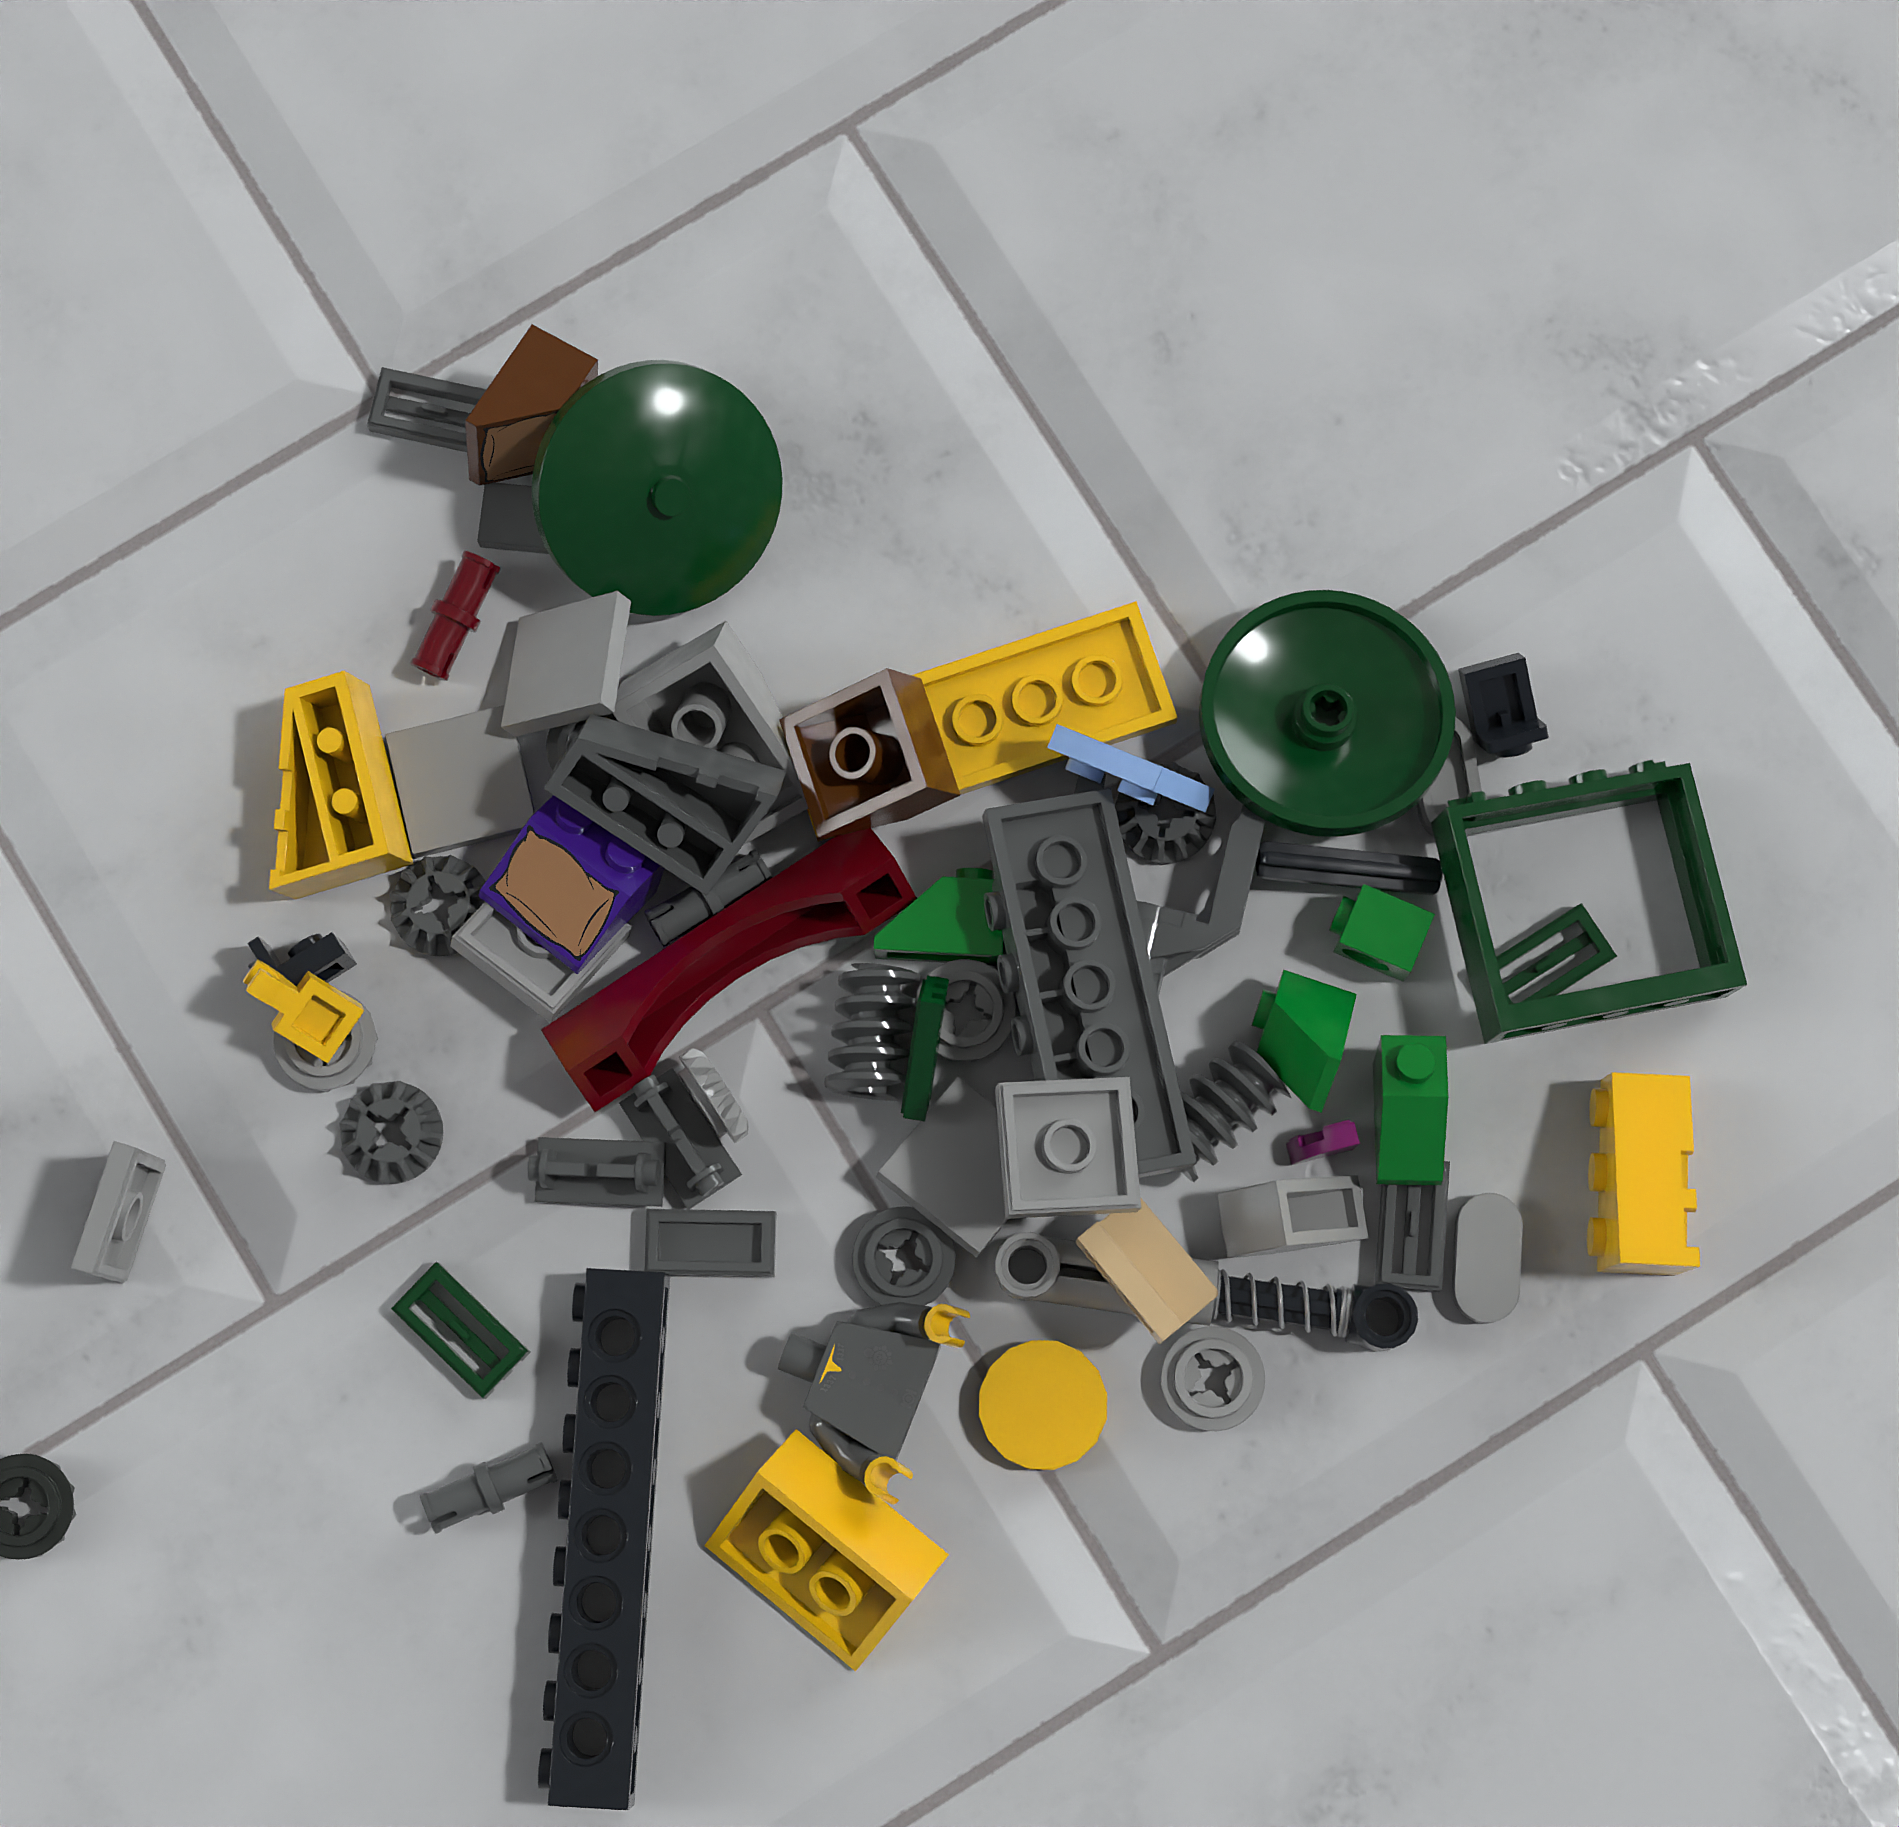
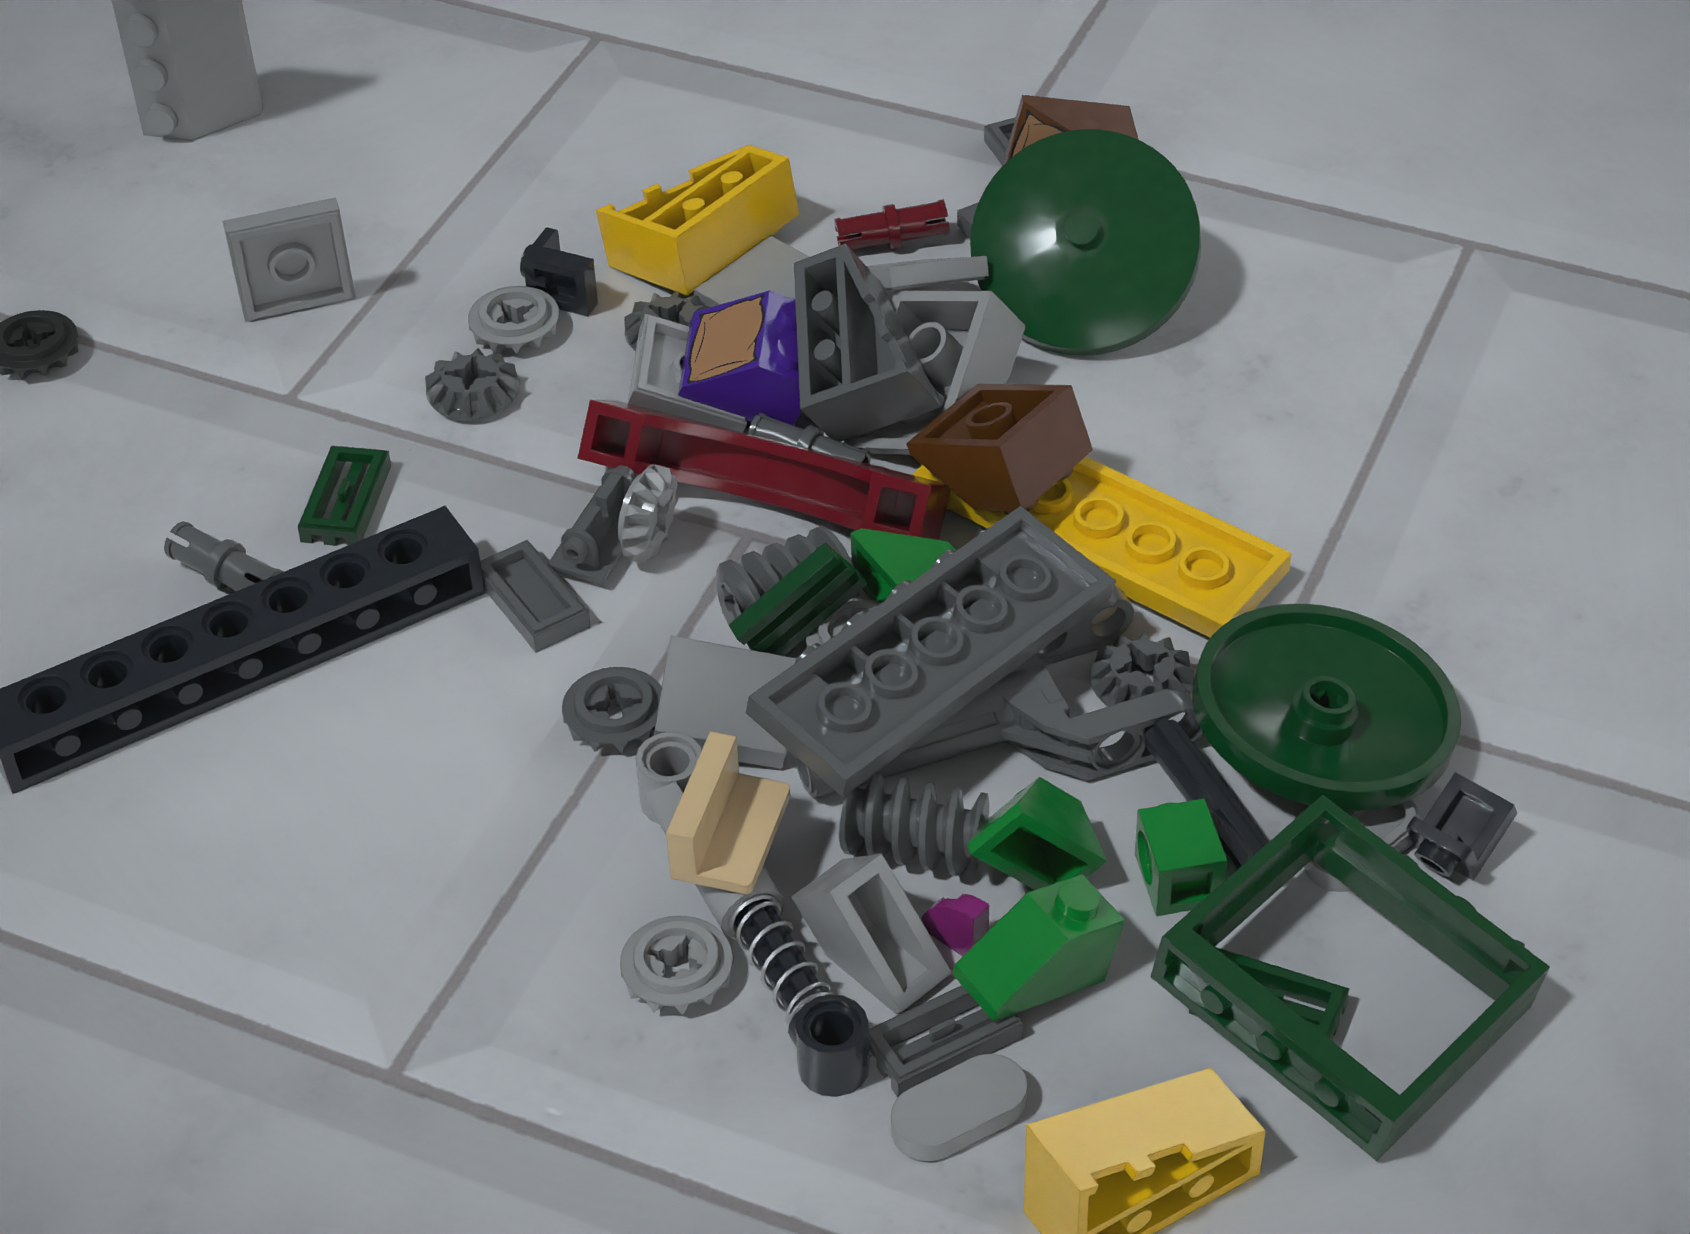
camera: 55 degrees right, 35 degrees down
(310, 1013) = (524, 273): yellow plate -> none
(598, 1171) = (530, 494): dark grey hinge -> none
(825, 1549) = (322, 779): yellow slope -> none
(870, 1384) = (486, 733): dark grey torso -> none
(1043, 1405) = (559, 864): yellow tile -> none
(1067, 1147) = (780, 672): light grey tile -> none
(1139, 777) = (1143, 591): light blue wing -> none

